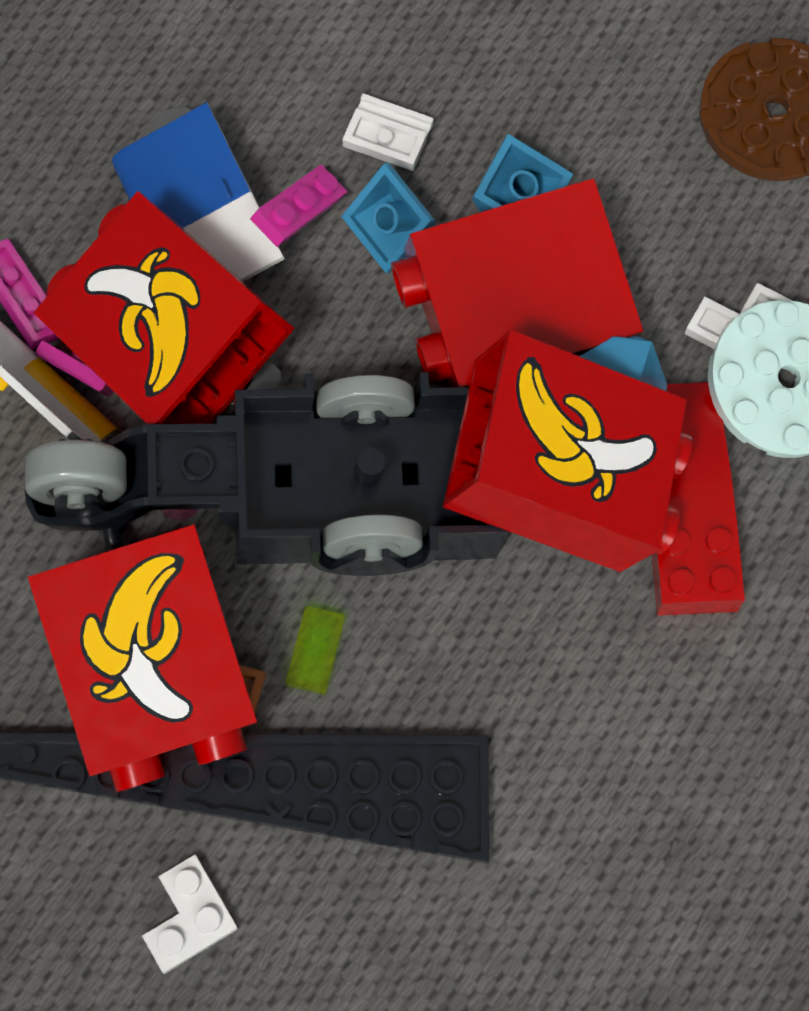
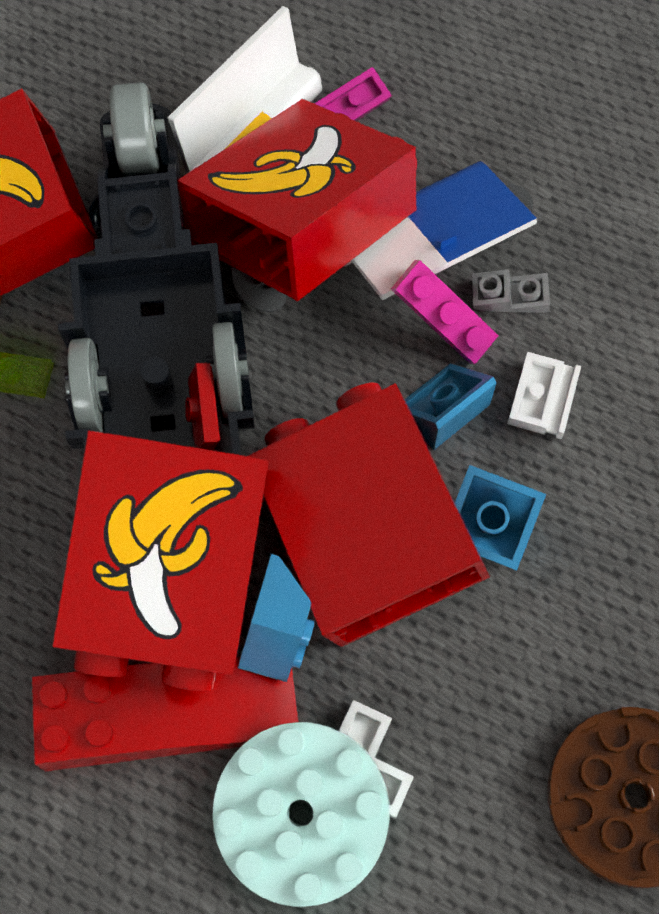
camera: 85 degrees right, 5 degrees down
(267, 148) = (502, 293): none -> light grey slope
(413, 420) = (201, 407): none -> red plate

